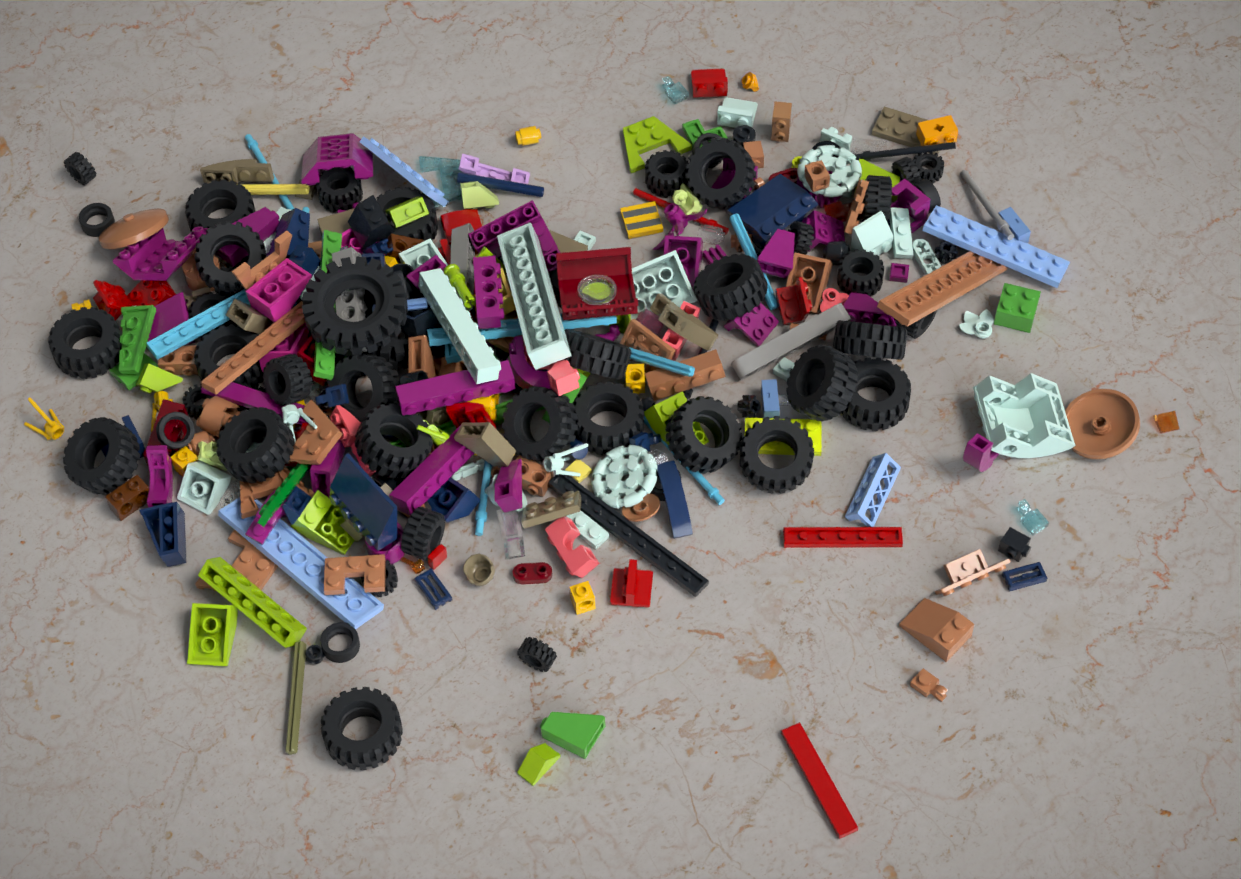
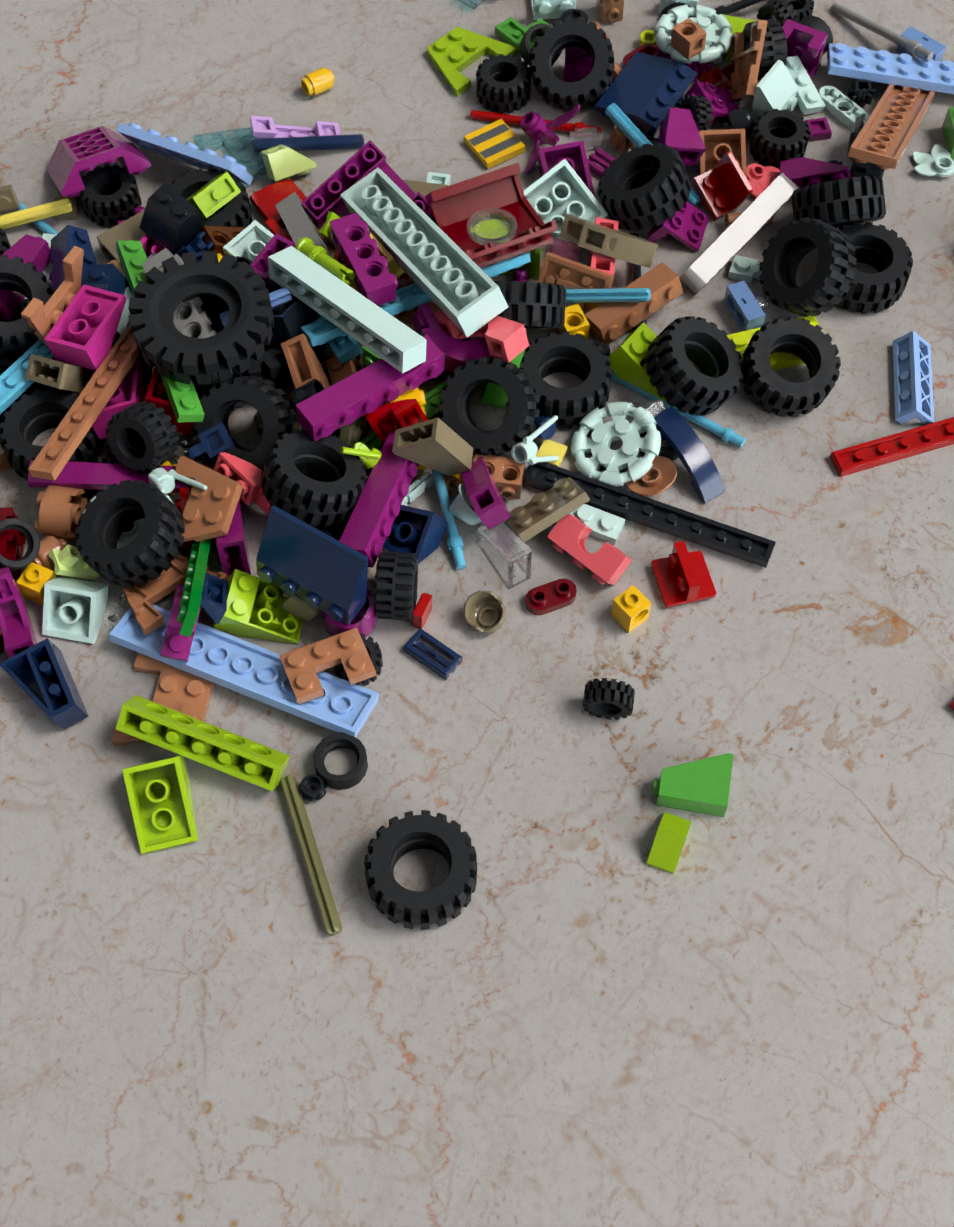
camera: 20 degrees left, 5 degrees up
(189, 399) = (16, 494): black tyre -> none
(416, 566) = (400, 631): clear orange hand -> none
(645, 440) = (619, 393): dark blue plate -> none
(686, 200) = (543, 105): yellowish green hips -> none
(748, 406) = (725, 319): black gear -> none

